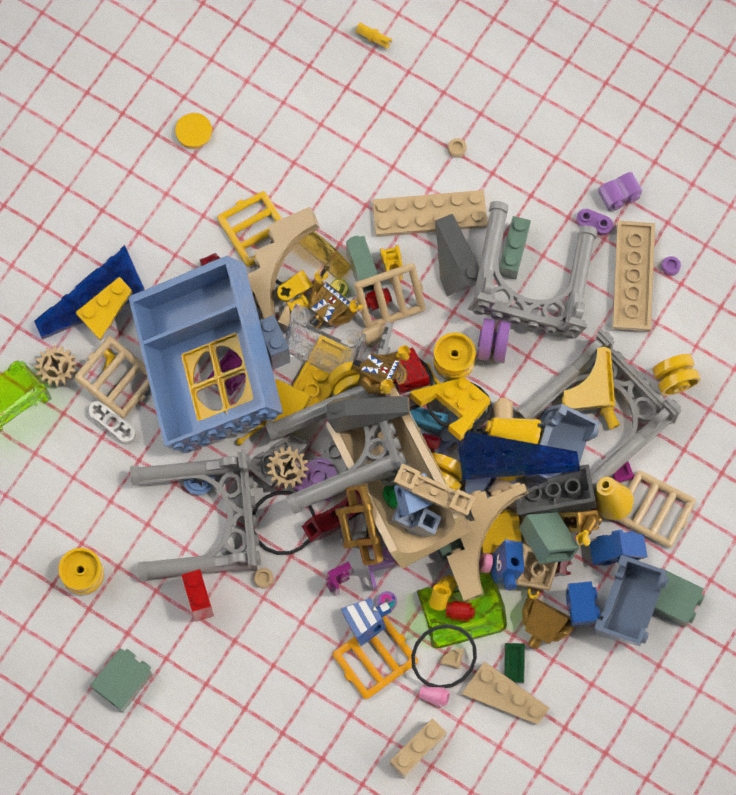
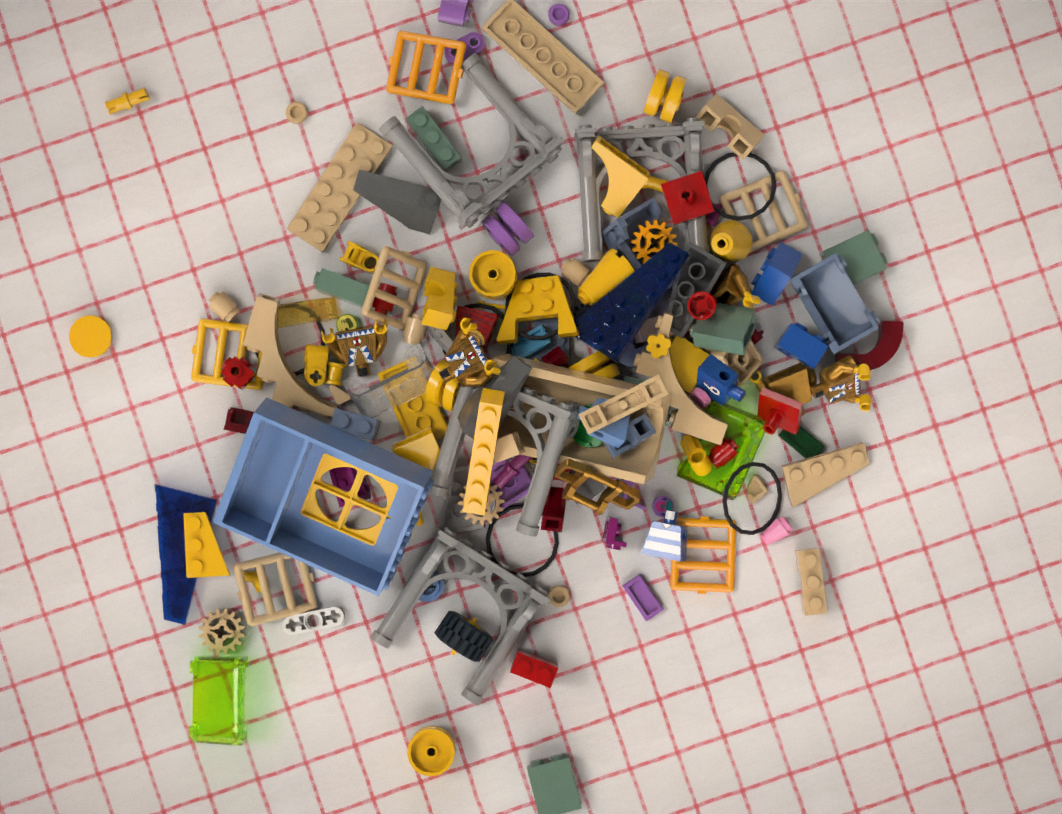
camera: 45 degrees left, 15 degrees up
(182, 529) = (464, 636): none -> black wheel
(246, 238) = (245, 373): none -> red brick
(285, 199) = (224, 306): none -> tan brick
(309, 638) = (643, 597): none -> medium lavender tile
(326, 469) = (510, 470): none -> magenta pin
(339, 442) = (508, 447): none -> tan brick
(345, 411) = (483, 451): none -> yellow arch
(407, 330) = (439, 306): none -> yellow arch
(496, 502) = (656, 352): none -> yellow plant
(521, 625) = (779, 412): none -> red tile
(543, 222) = (421, 40): none -> light orange bar
(551, 505) = (702, 305): none -> red wheel
(570, 435) = (647, 235): none -> light orange gear
(578, 655) = (843, 383): none -> pearl gold torso
(619, 445) = (687, 198): none -> red tile
(623, 669) = (888, 342): none -> dark red arch
(646, 500) = (739, 218): none -> black piece
(696, 423) = (743, 134): none -> tan arch

